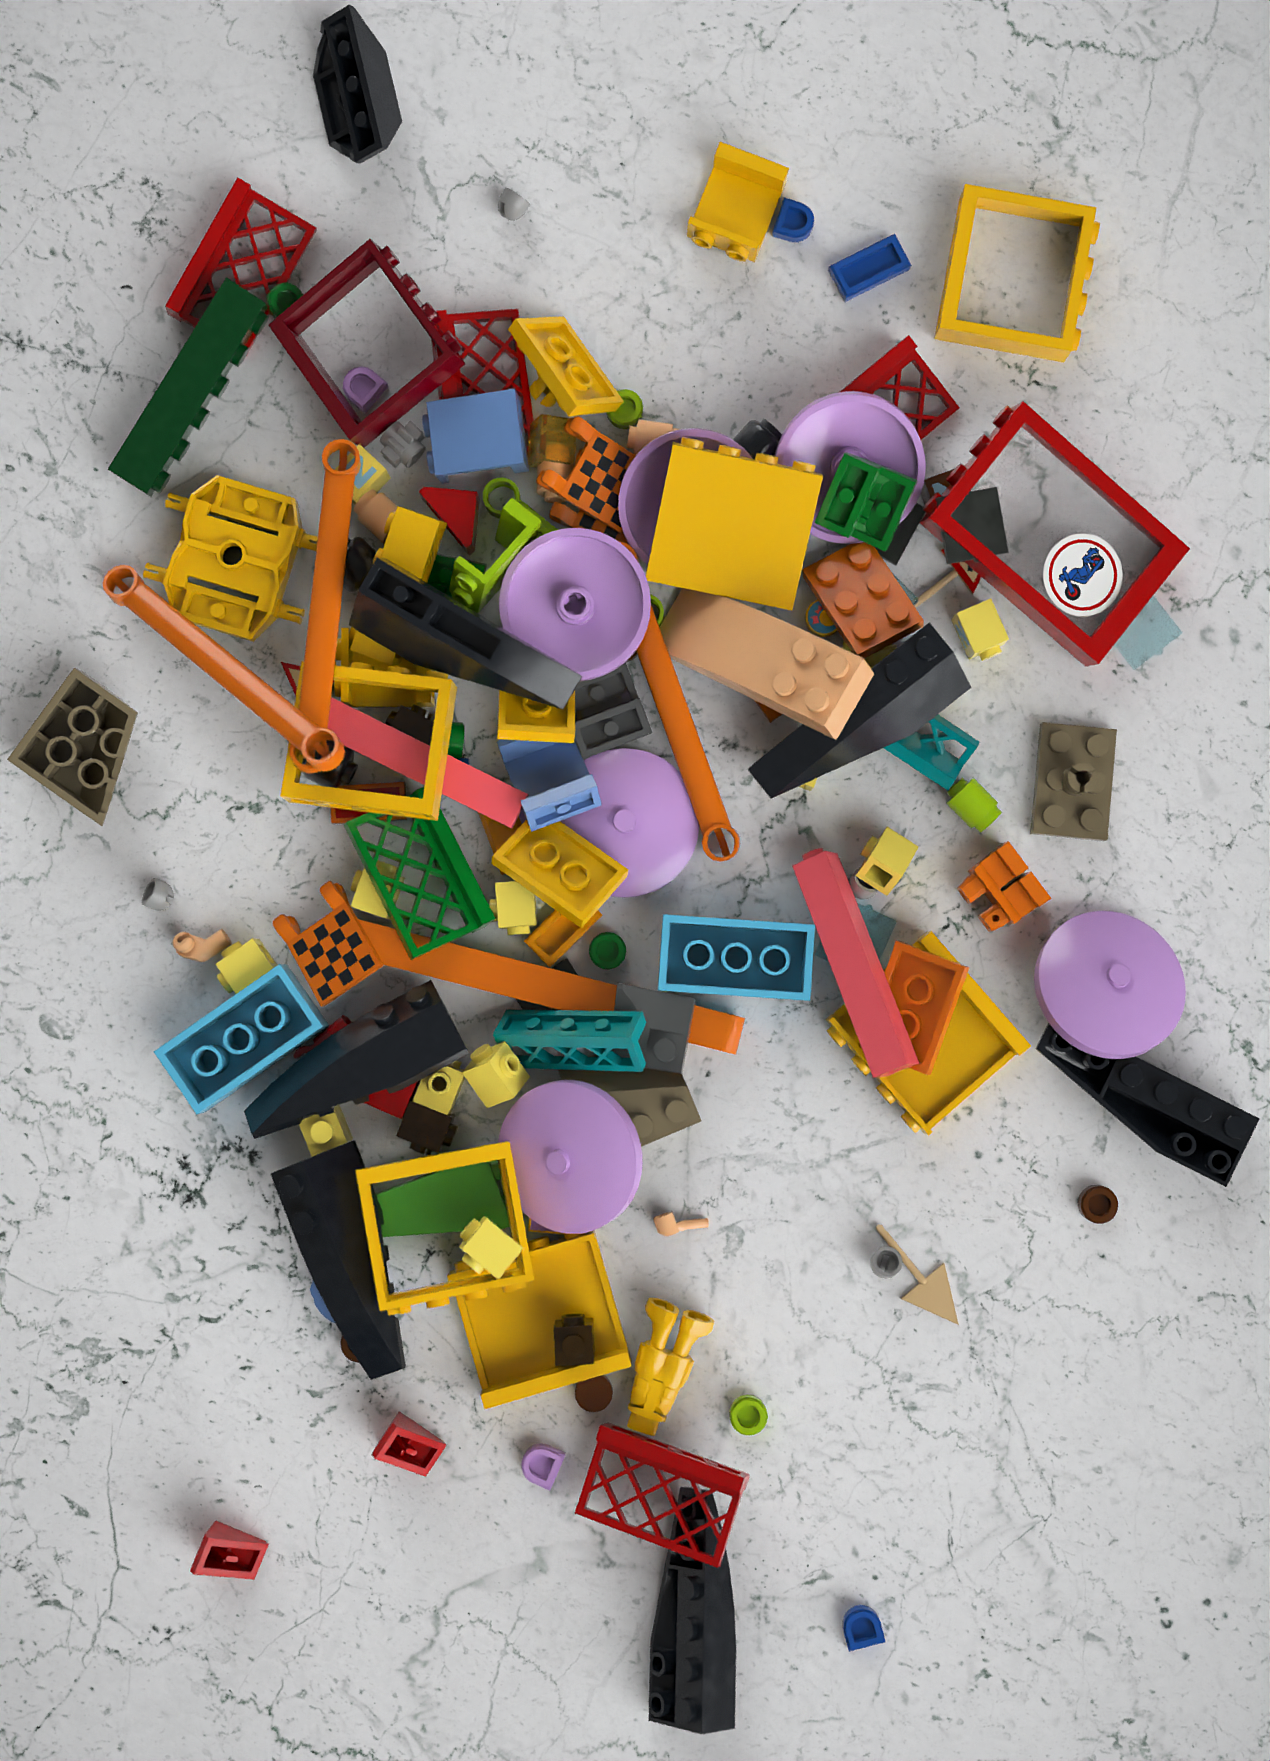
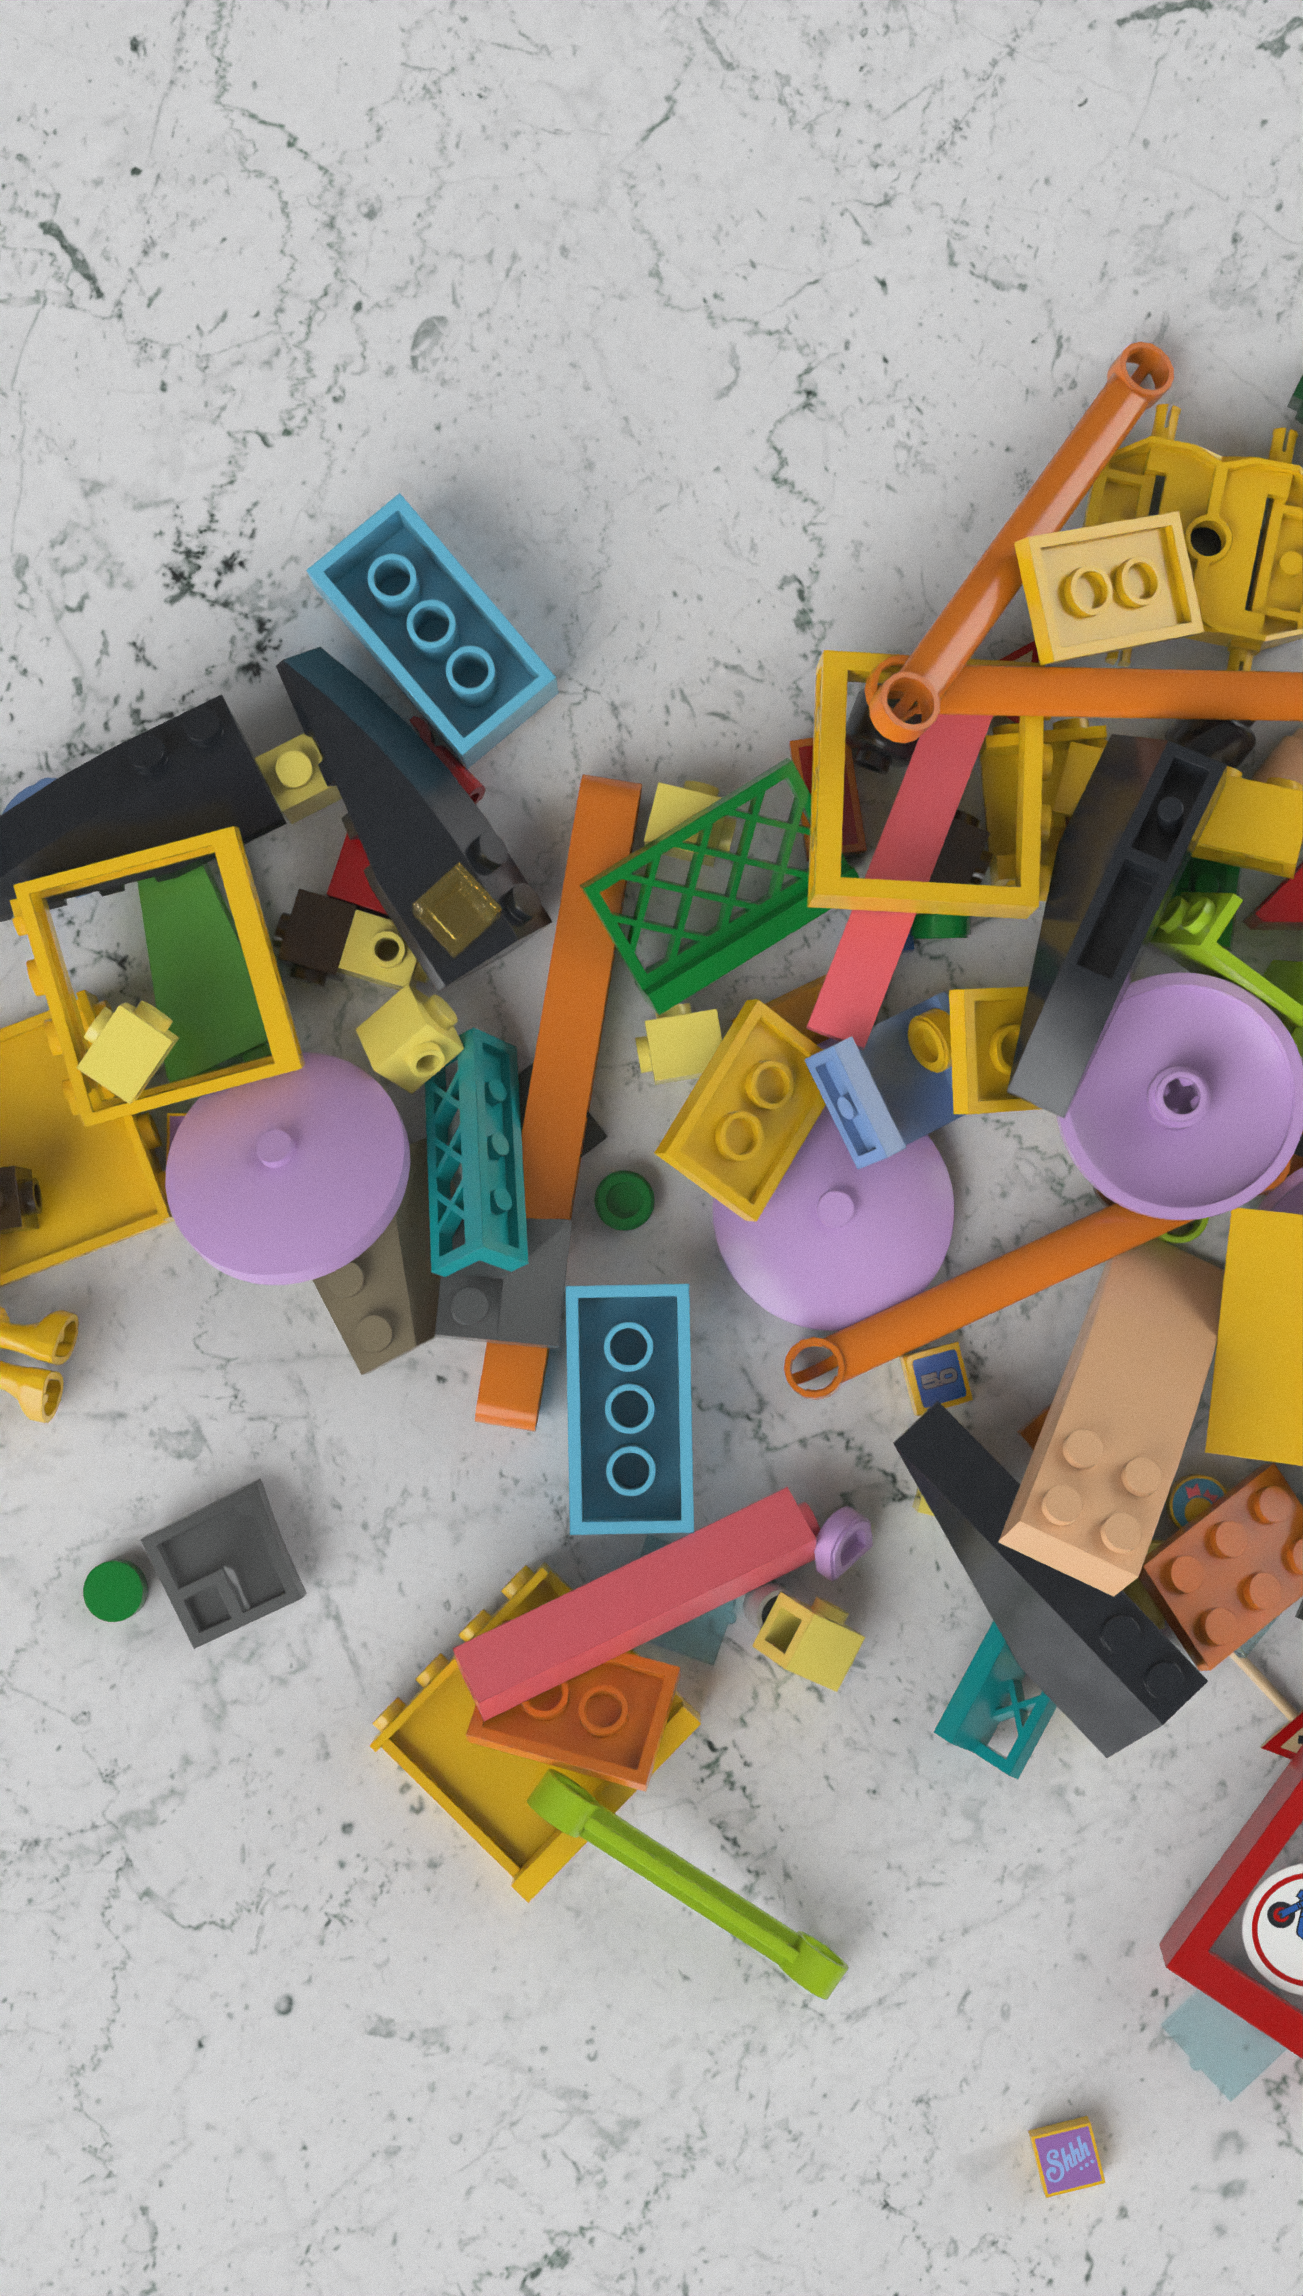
camera: 90 degrees right, 0 degrees up
(78, 744) = (879, 328): dark tan wedge -> none
(156, 894) = (652, 477): light grey hinge -> none
(200, 949) = (571, 554): light nougat arm -> none
(243, 965) = (551, 624): light yellow brick -> none
(258, 617) = (1108, 587): none -> yellow plate
(333, 950) = (586, 762): orange flag -> none
(420, 1036) = (456, 910): none -> clear yellow panel
(525, 753) = (931, 1039): none -> yellow tile
(556, 936) = (639, 1116): light orange tile -> none
(608, 713) = (1008, 1167): dark grey slope -> none
(667, 1225) = (192, 1336): light nougat hand -> none
(732, 768) = (936, 1376): none -> slope
(811, 1217) = (224, 1564): none -> dark grey plate
(821, 1287) = (115, 1590): none -> green tile
(828, 835) = (842, 1542): none -> lavender tile
(893, 1264) = (159, 1704): light grey hinge -> none
(932, 1292) = (121, 1770): tan piece -> none
(973, 804) = (915, 1775): lime brick -> none
(980, 630) = (1202, 1765): light yellow brick -> none
(980, 1008) = (580, 1814): none -> lime piece
(1011, 902) = (762, 1853): orange hips -> none
(1073, 781) = (967, 1938): dark tan plate -> none
(1098, 1204) = (283, 2031): reddish brown tile -> none
(1109, 984) = (638, 2025): lavender dish -> none
(1159, 1108) = (451, 2111): black wedge -> none
(1207, 734) = (1066, 2156): none -> tile

